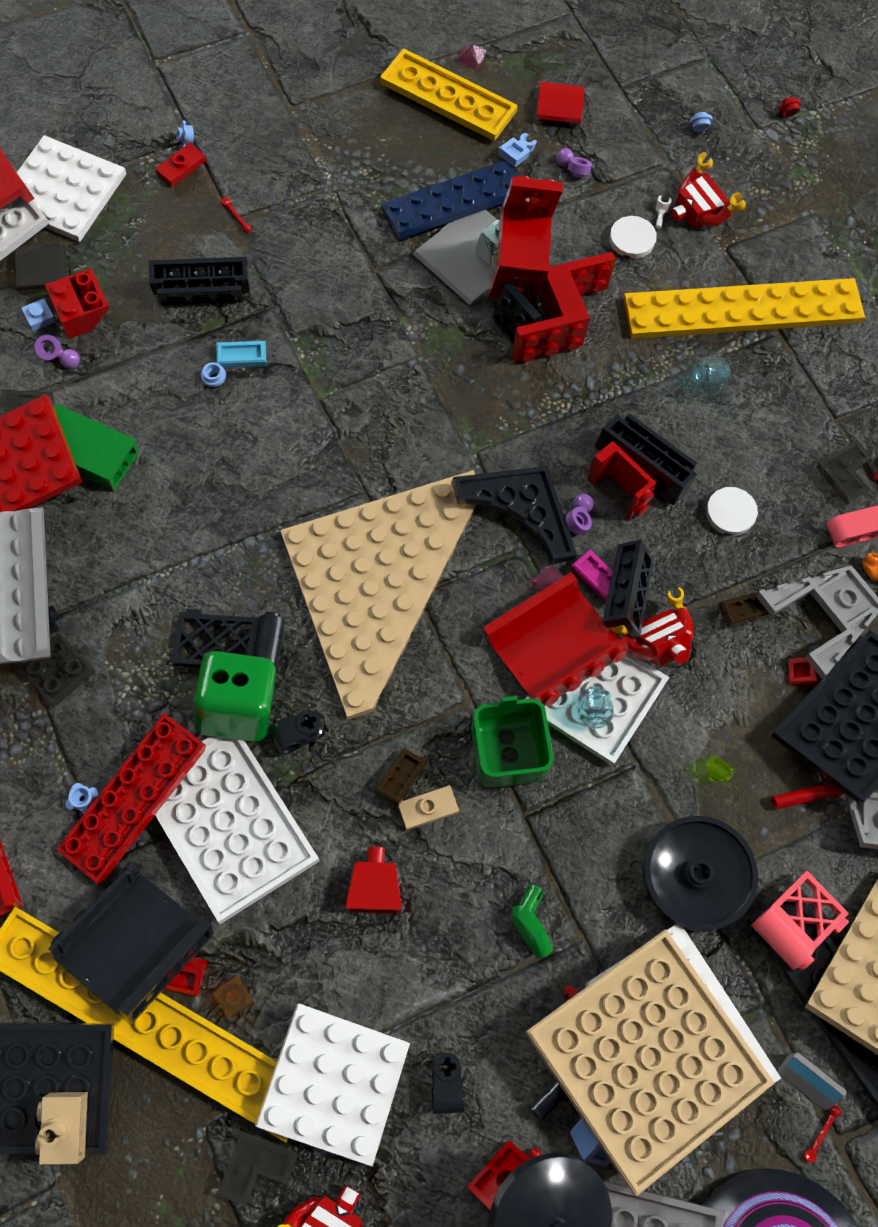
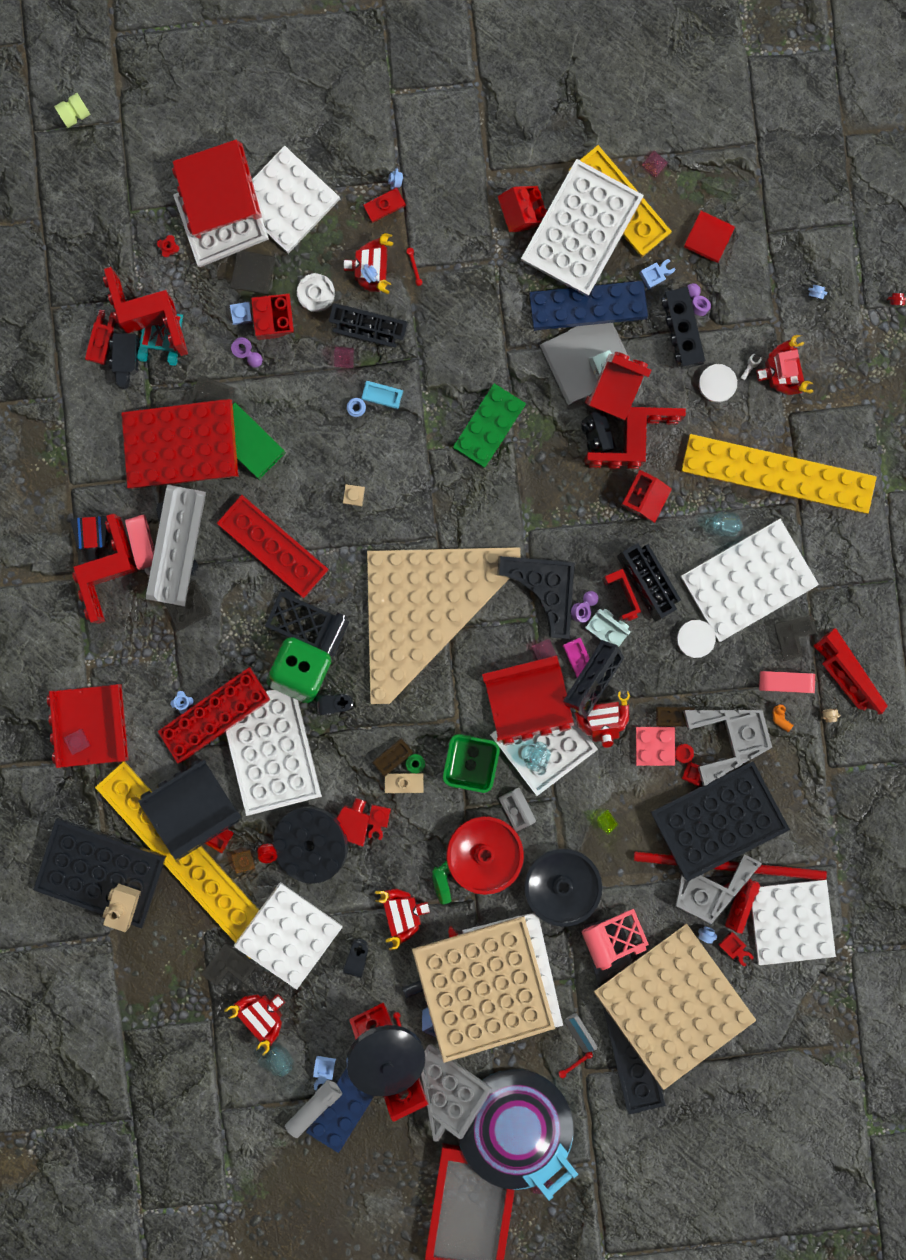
camera: 30 degrees right, 20 degrees up
(125, 270) = (315, 292): none -> white tile
(154, 560) = (272, 546): none -> red plate
(181, 324) = (344, 357): none -> clear pink plate
(183, 220) = (369, 273): none -> light blue plate
(184, 220) = (372, 254): none -> torso
(242, 473) = (354, 495): none -> tan plate
(265, 972) = (267, 853): none -> red tile
(342, 124) = (522, 208): none -> red slope
(354, 926) = (328, 839): none -> black plate
(384, 351) = (489, 425): none -> green plate
(410, 869) = (378, 818): none -> red plate
(416, 122) = (582, 227): none -> white plate
(431, 783) = (420, 759): none -> green plate
(490, 992) = (402, 914): none -> torso
(576, 865) = (485, 855): none -> red dish
(580, 197) = (681, 299): none -> black brick
(593, 793) = (517, 809): none -> light grey slope
(602, 368) = (646, 496): none -> red slope
(618, 527) = (607, 628): none -> light aqua bracket
(701, 184) = (787, 364): none -> coral panel
(738, 653) = (655, 746): none -> coral plate
(763, 428) = (749, 580): none -> white plate
(778, 651) = (684, 753): none -> red tile

